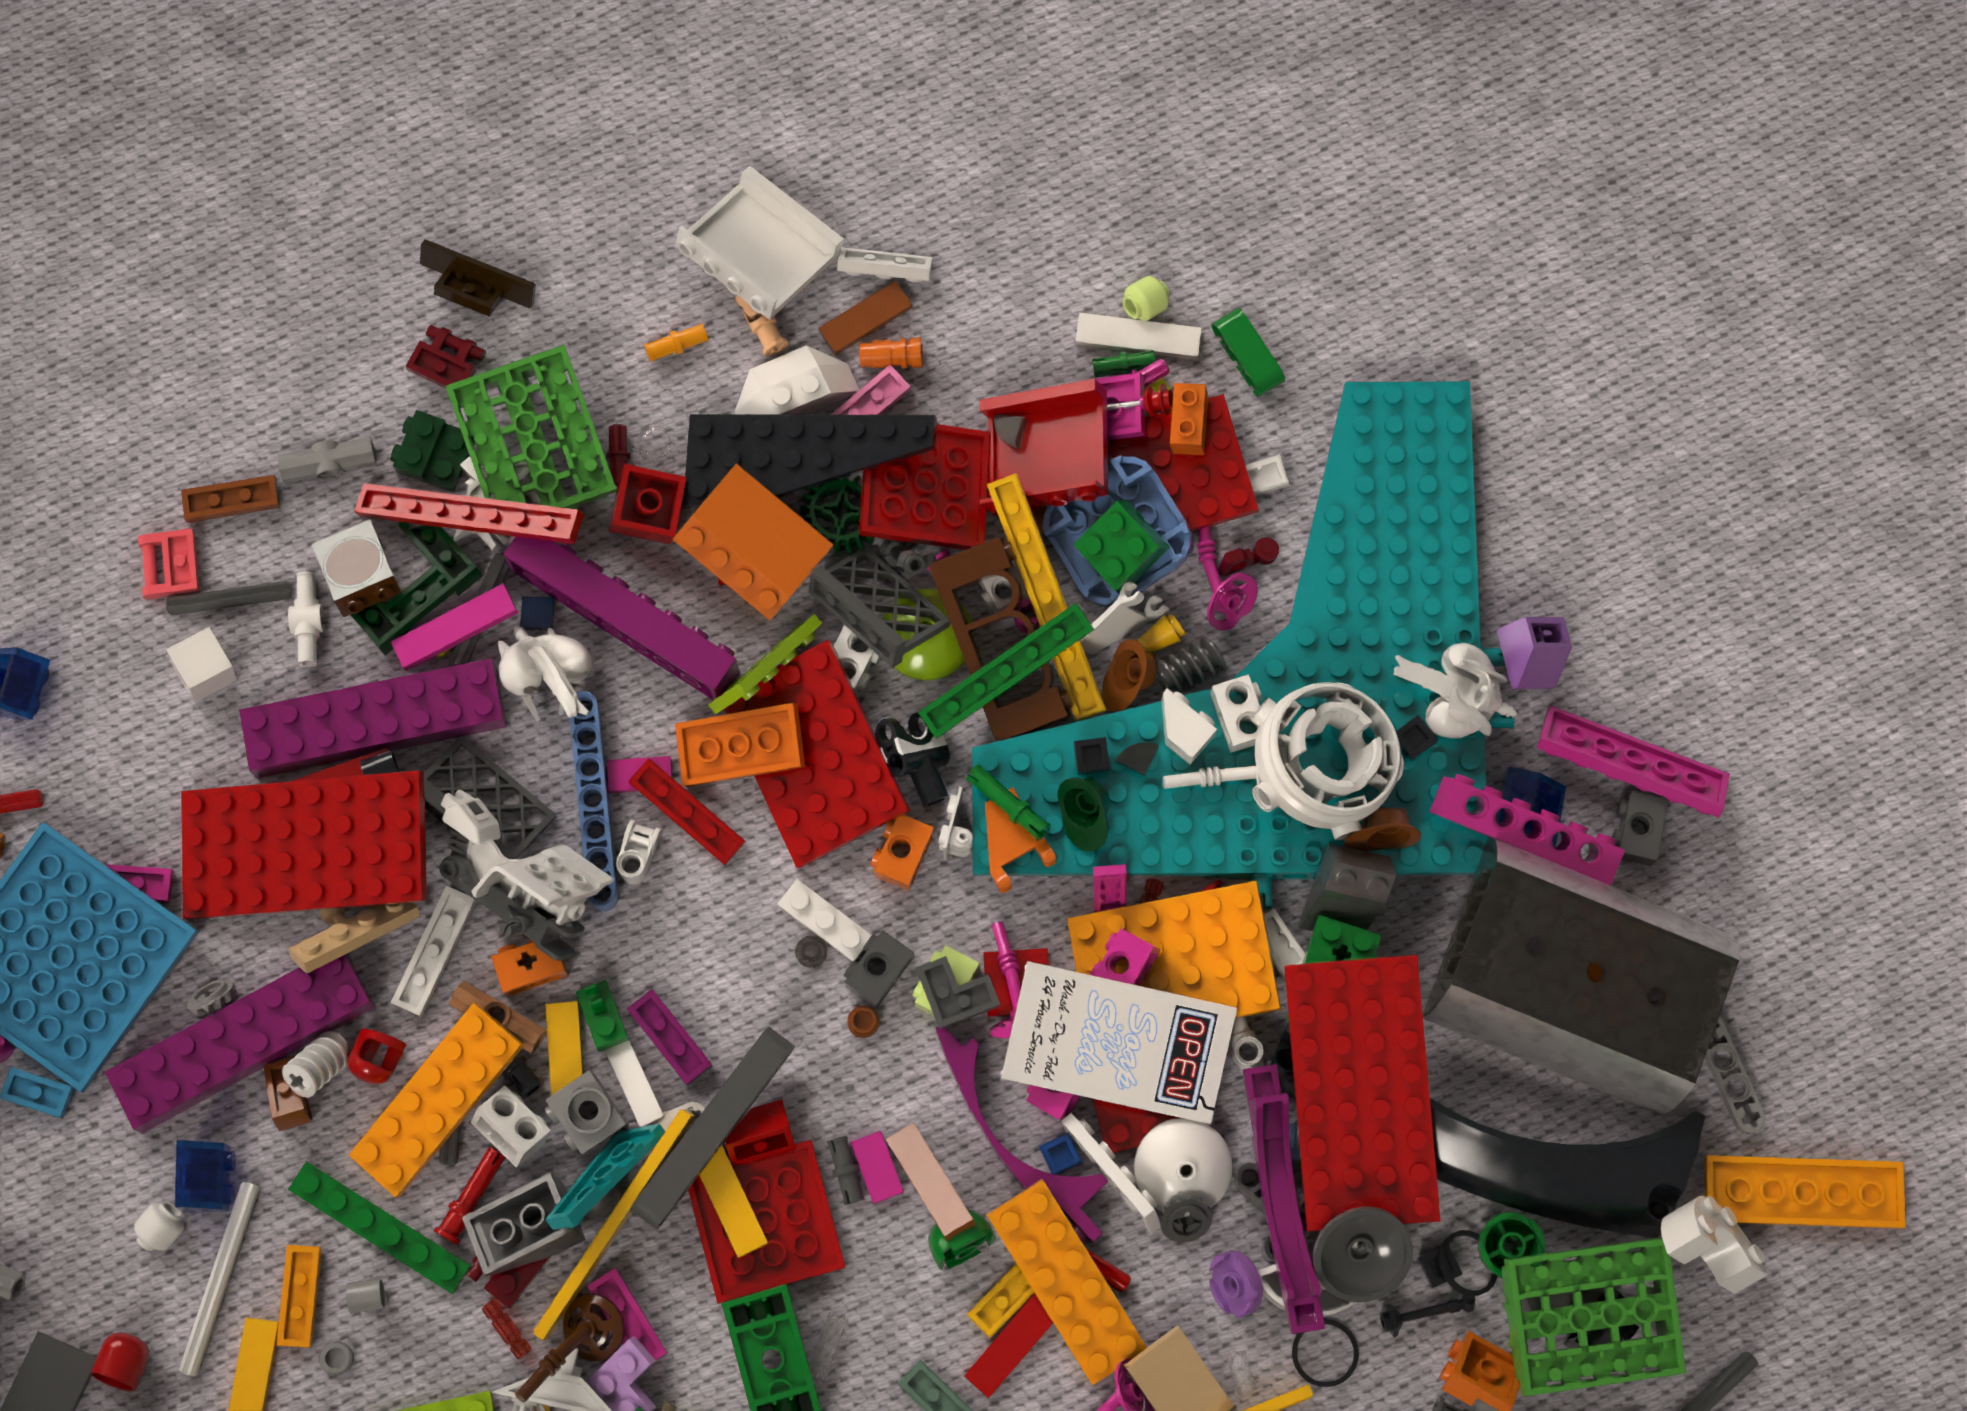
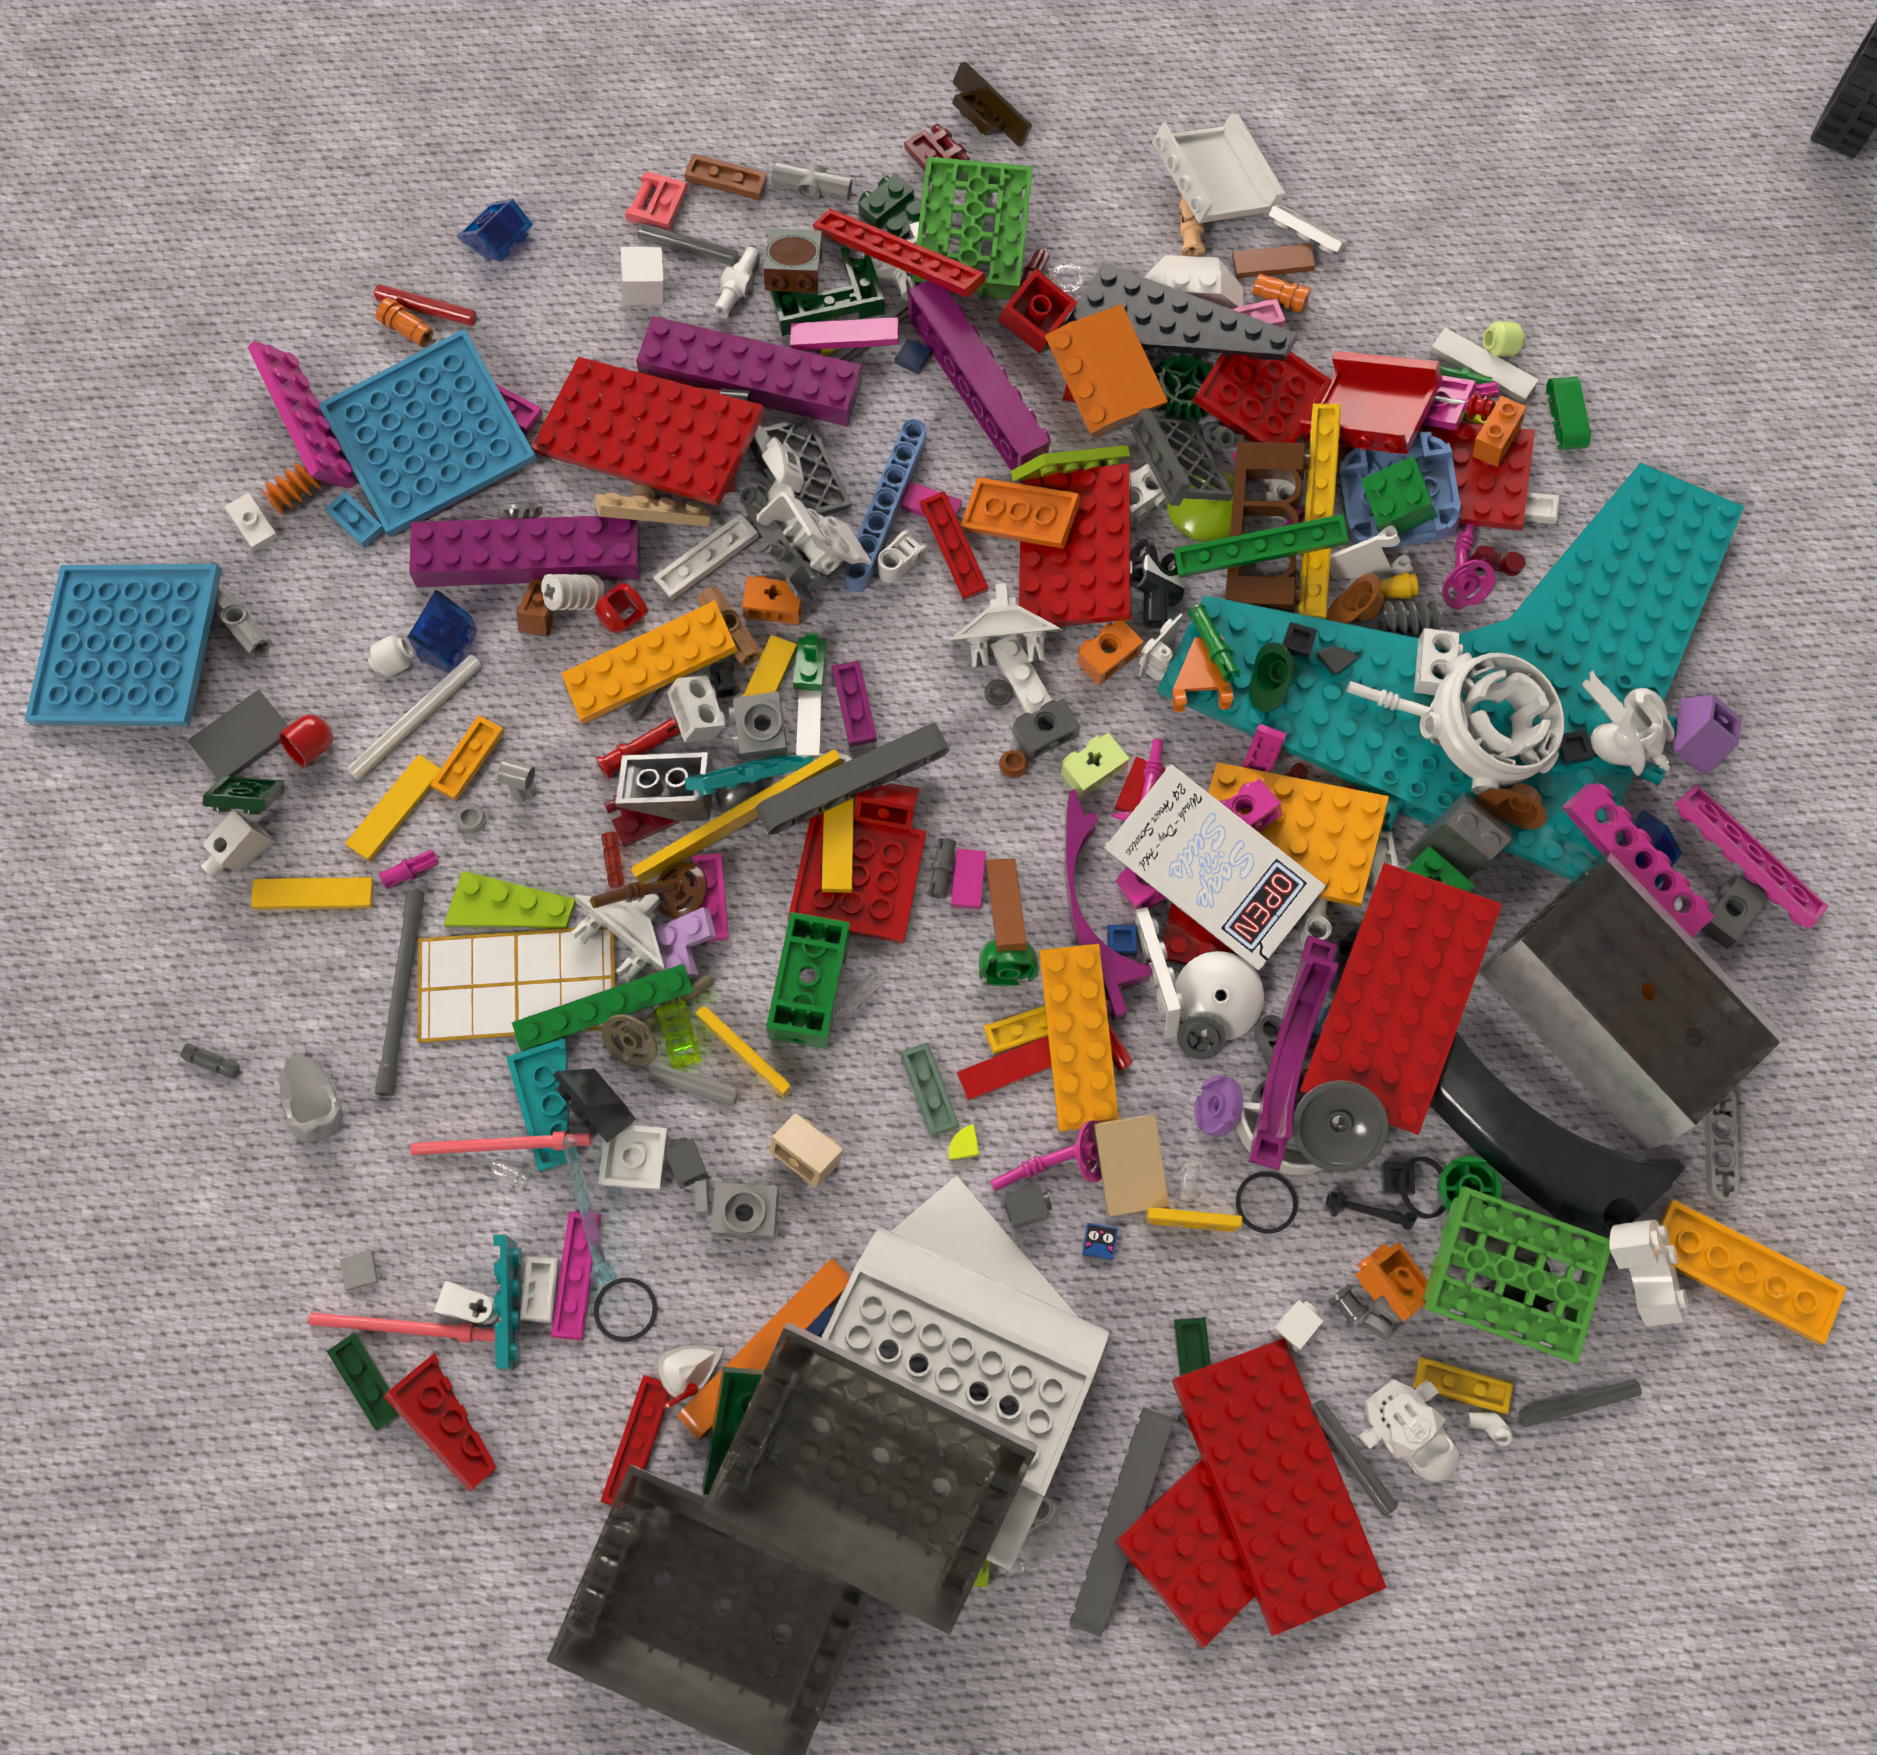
camera: 25 degrees right, 5 degrees down
(379, 1228) = (556, 739): green plate -> none
(547, 658) = (897, 386): white hair -> none
(676, 342) = (1117, 214): light orange pin -> none
(783, 872) = (1004, 619): none -> white connector
(954, 1002) = (1094, 776): dark grey plate -> none
(1010, 429) = (1349, 382): clear smoke tile -> none
(1184, 728) = (1386, 653): white slope -> none

